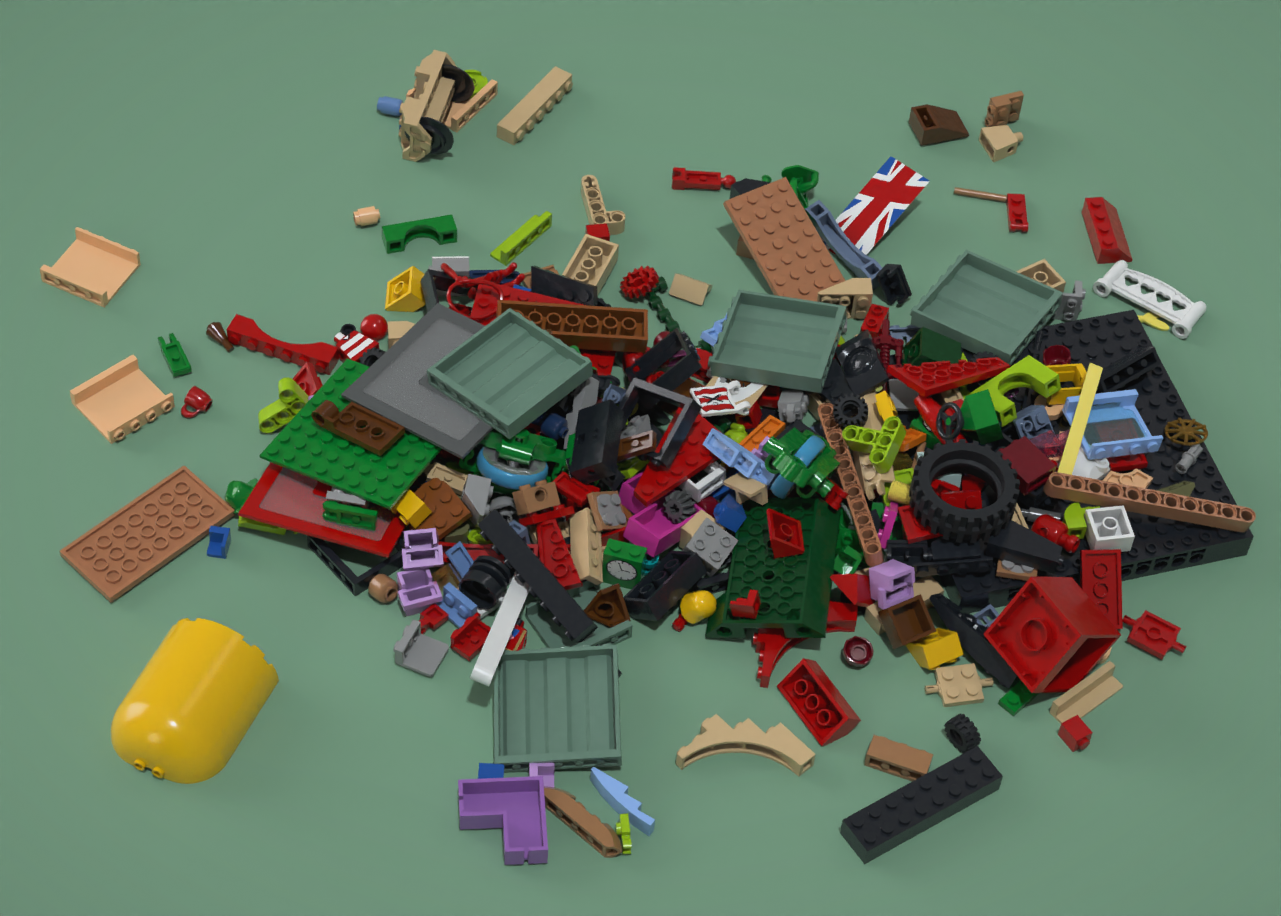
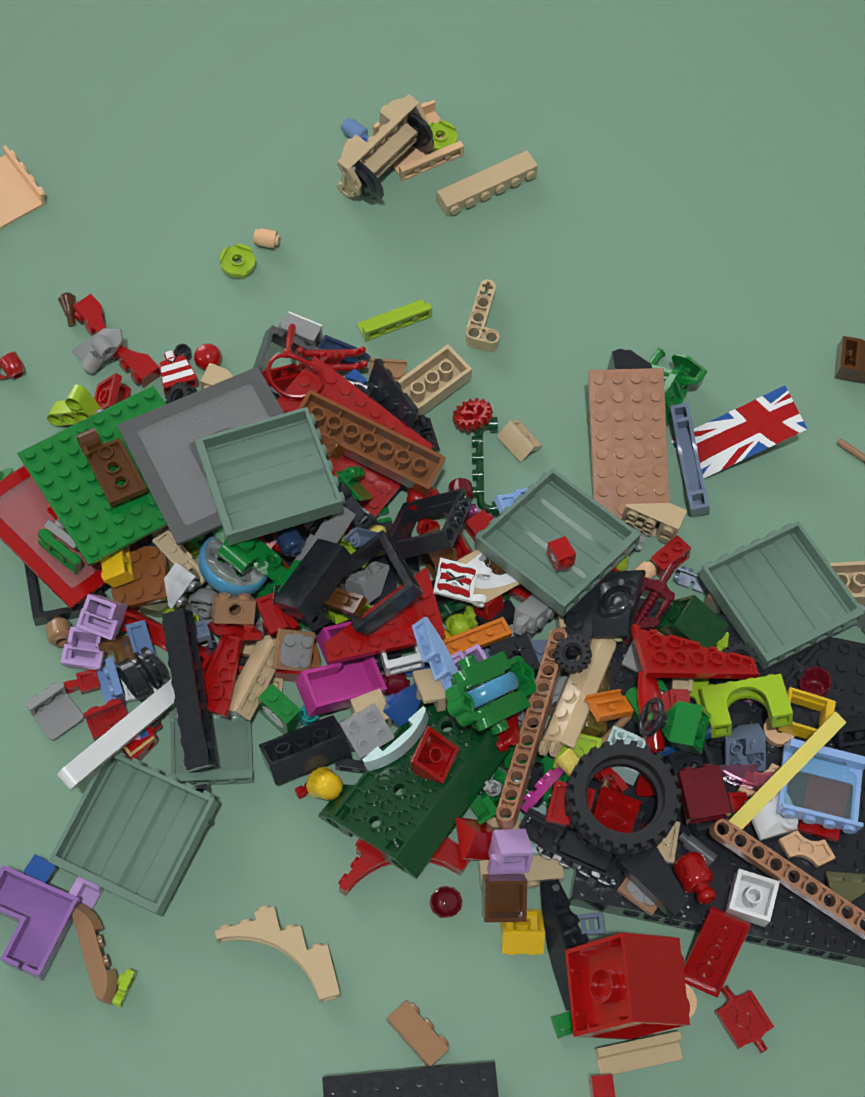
camera: 25 degrees right, 15 degrees up
(174, 356) = (18, 311): green hinge -> none
(272, 353) = (98, 348): none -> light grey panel
(346, 251) = (237, 270): none -> lime plate
(405, 291) = (252, 330): yellow slope -> none
(440, 229) = (282, 271): green arch -> none
(598, 230) = (465, 345): red panel -> none
(608, 607) = (242, 748): reddish brown slope -> none
(617, 797) = (140, 945): light blue slope -> none
(679, 506) = (365, 673): dark grey gear -> none
(699, 179) = (596, 327): red plate -> none
(739, 556) = (379, 758): none -> light aqua slope
(746, 607) = (358, 813): red panel -> none
(792, 341) = (561, 553): none -> red brick
(818, 702) = (379, 937): red slope -> none
(847, 538) = (493, 788): none -> light grey axle
(880, 445) = (576, 703): lime beam -> none
(885, 405) = (611, 666): yellow brick -> none
(893, 284) = (711, 522): black hinge -> none
(959, 685) = (523, 982): tan plate -> none
(962, 733) = (491, 1039): black tyre -> none
(1075, 519) = (726, 868): lime brick -> none

